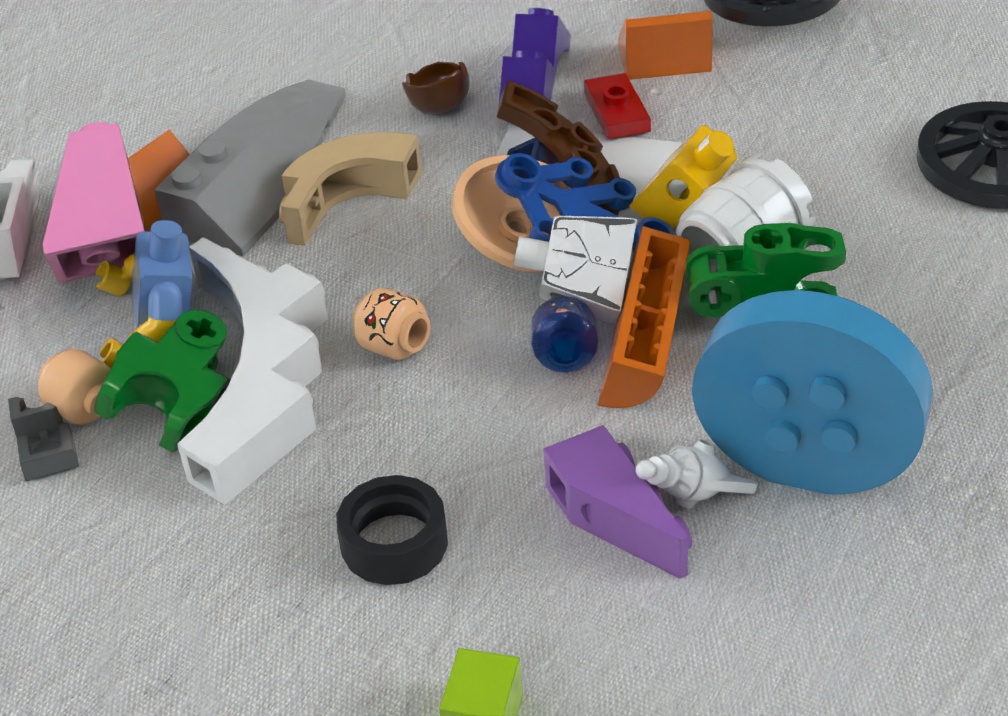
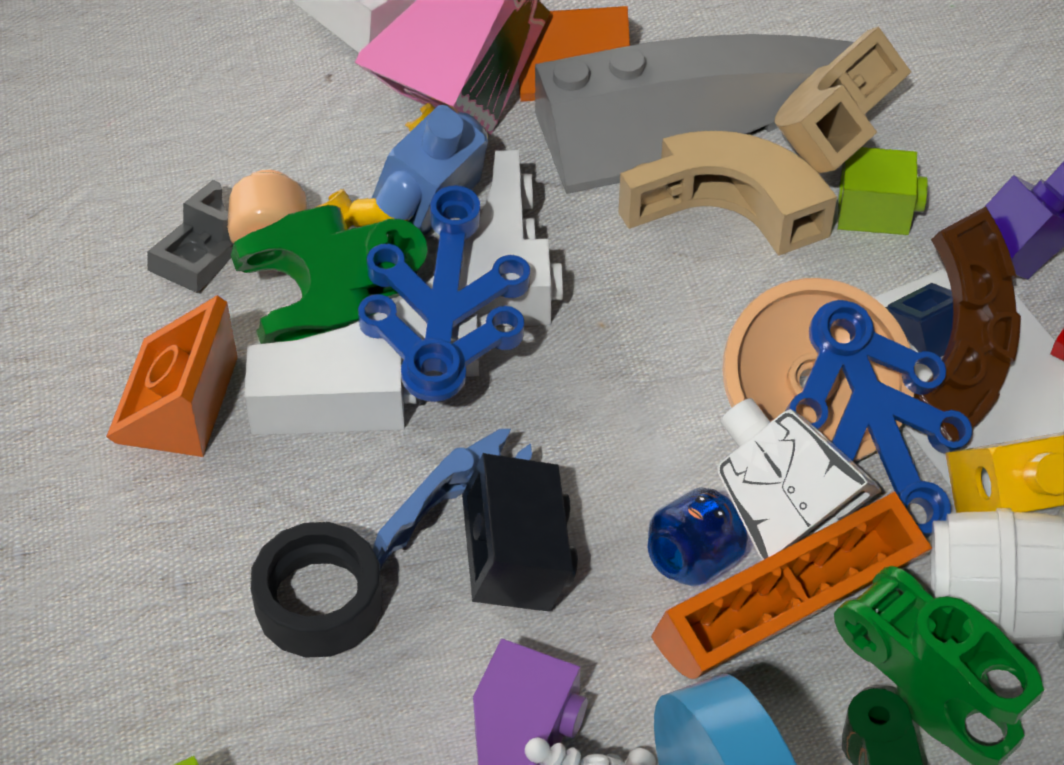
camera: 45 degrees right, 10 degrees up
(145, 507) = (178, 383): none -> orange slope
(311, 360) = (444, 304): none -> blue plant
(359, 95) = (828, 110): none -> tan arch
(391, 323) = (566, 383): light nougat head -> none
(397, 405) = (444, 483): none -> medium blue arm
(430, 118) = (880, 191): none -> lime brick
(437, 87) = (950, 151): reddish brown hair -> none
(471, 404) = (517, 533): none -> black brick

